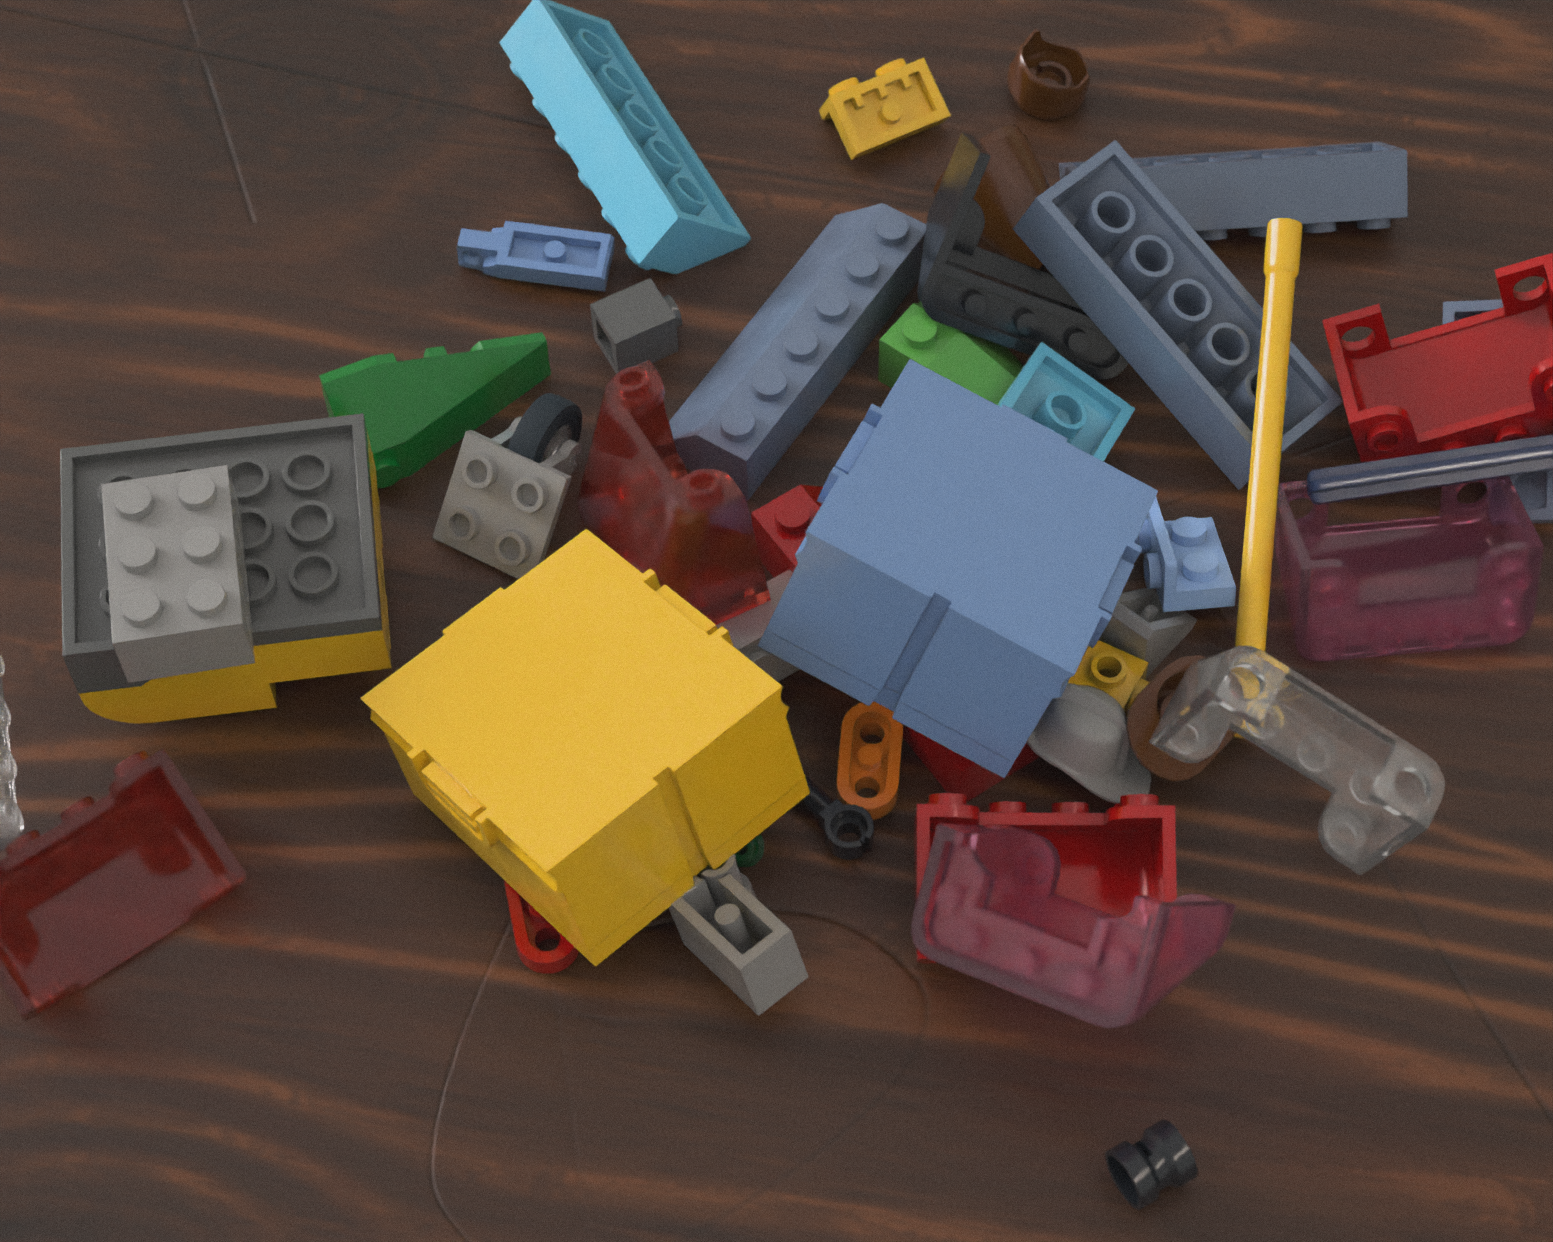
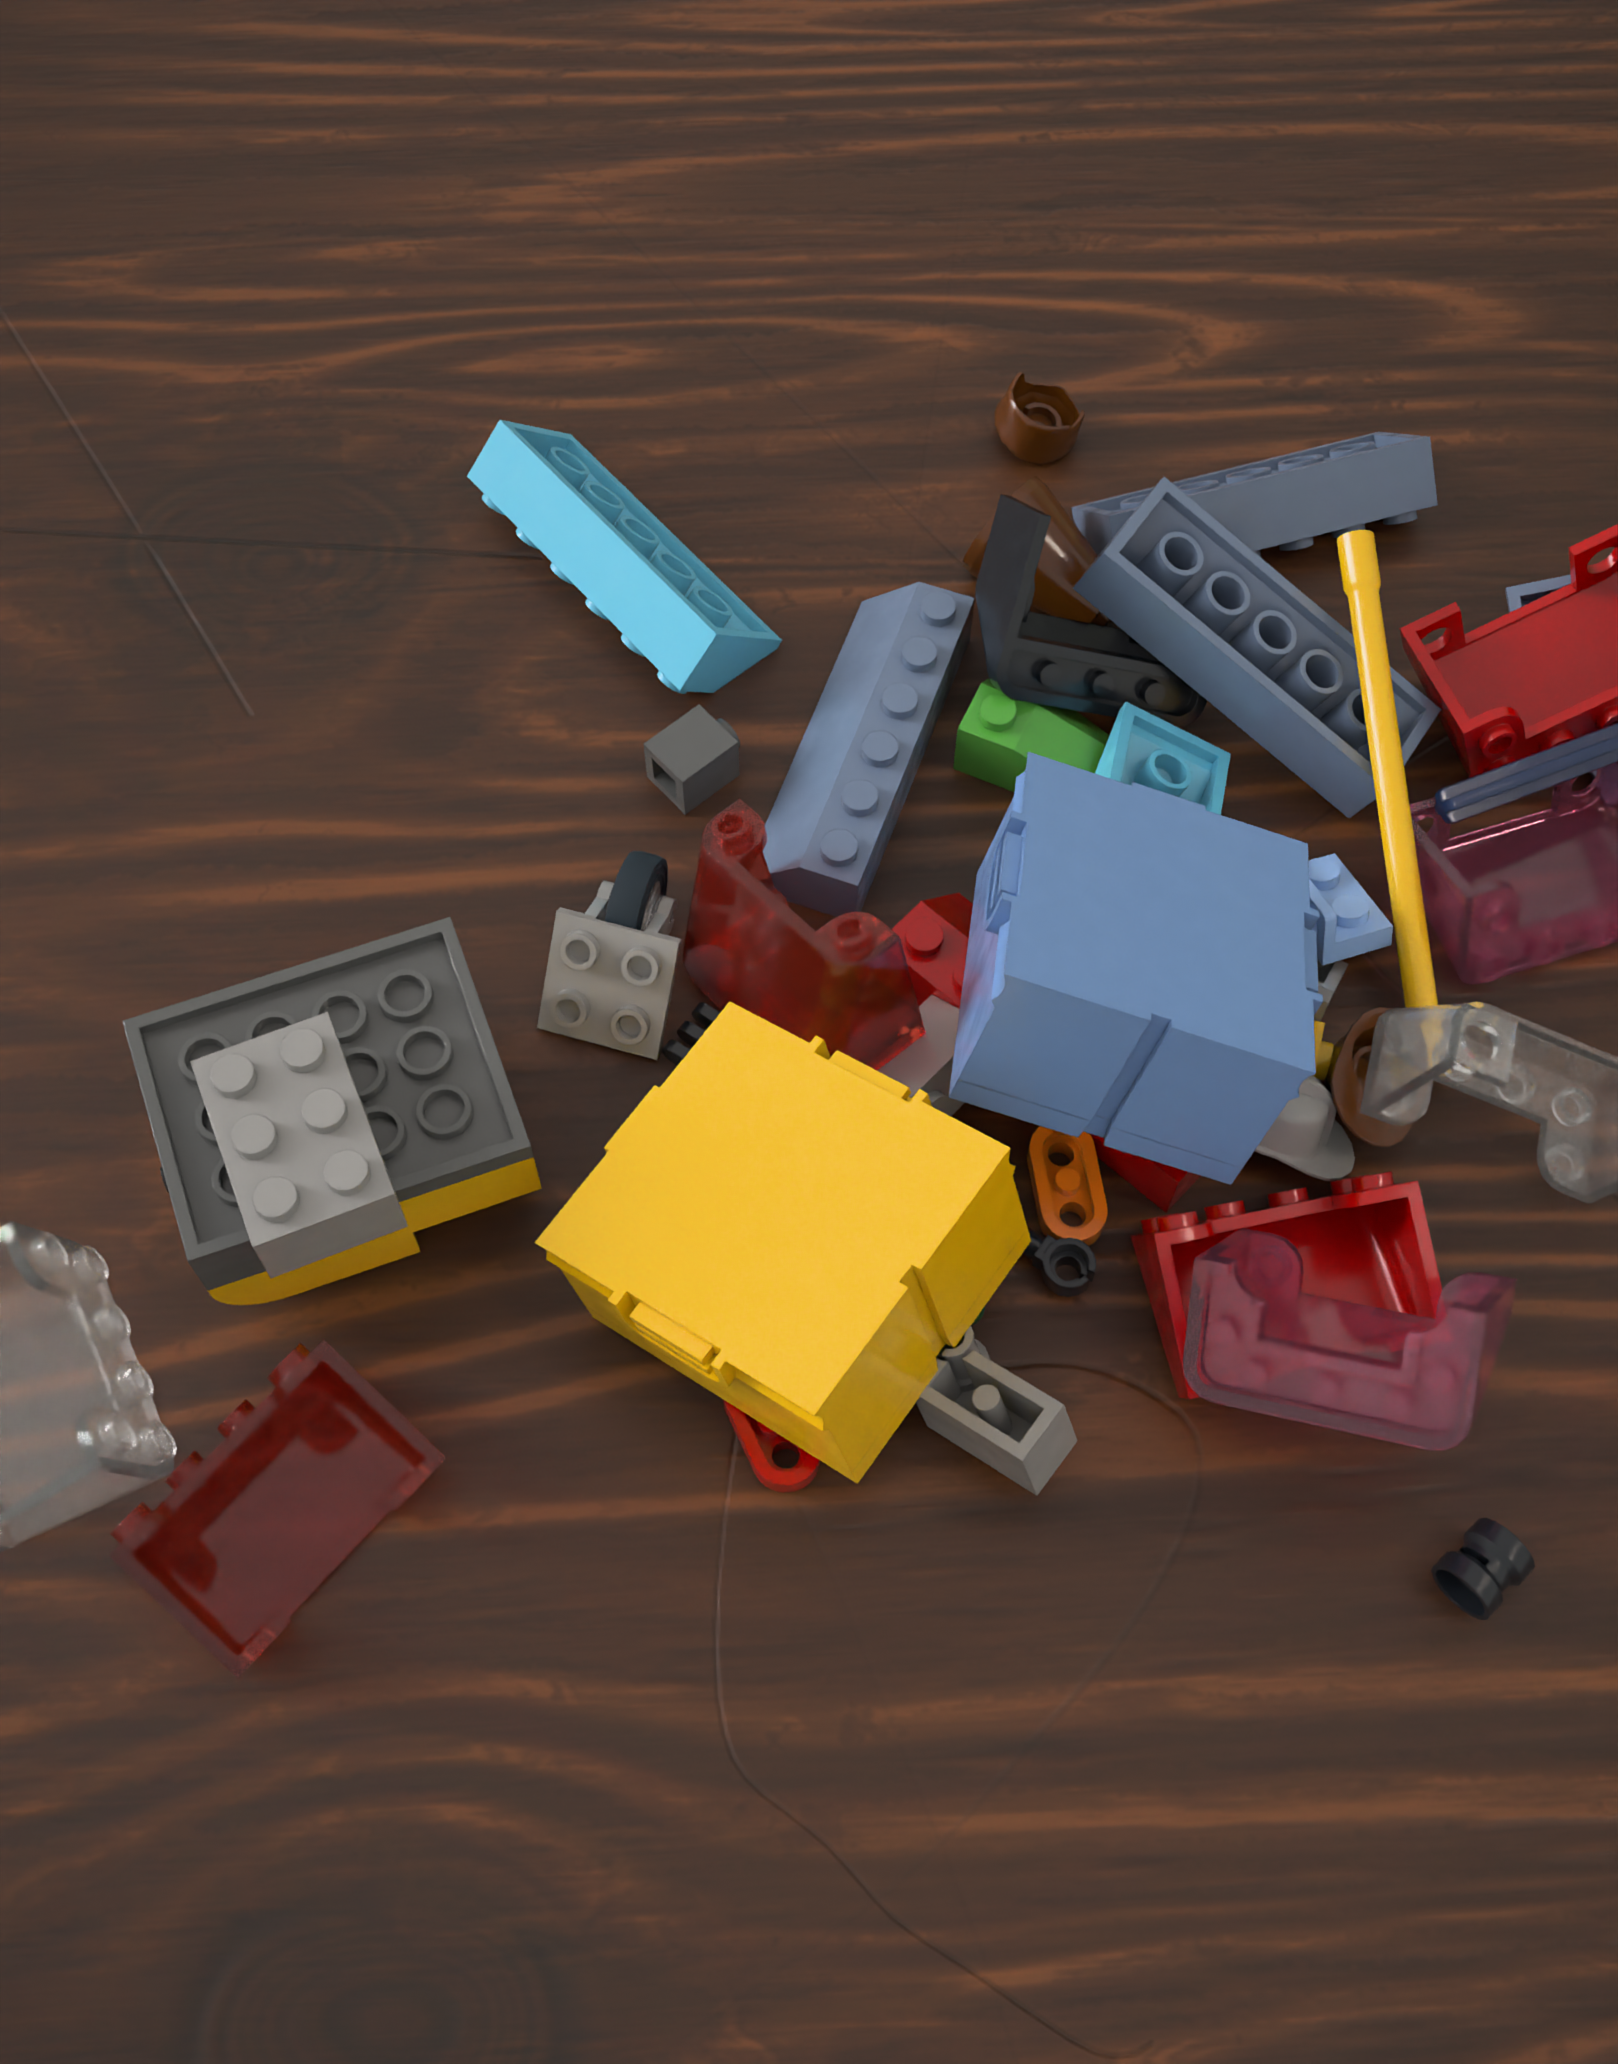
camera: 15 degrees left, 5 degrees up
(430, 402) = (500, 881): green wedge -> none
(539, 254) = (568, 697): medium blue hinge -> none
(885, 108) = (884, 479): yellow bracket -> none

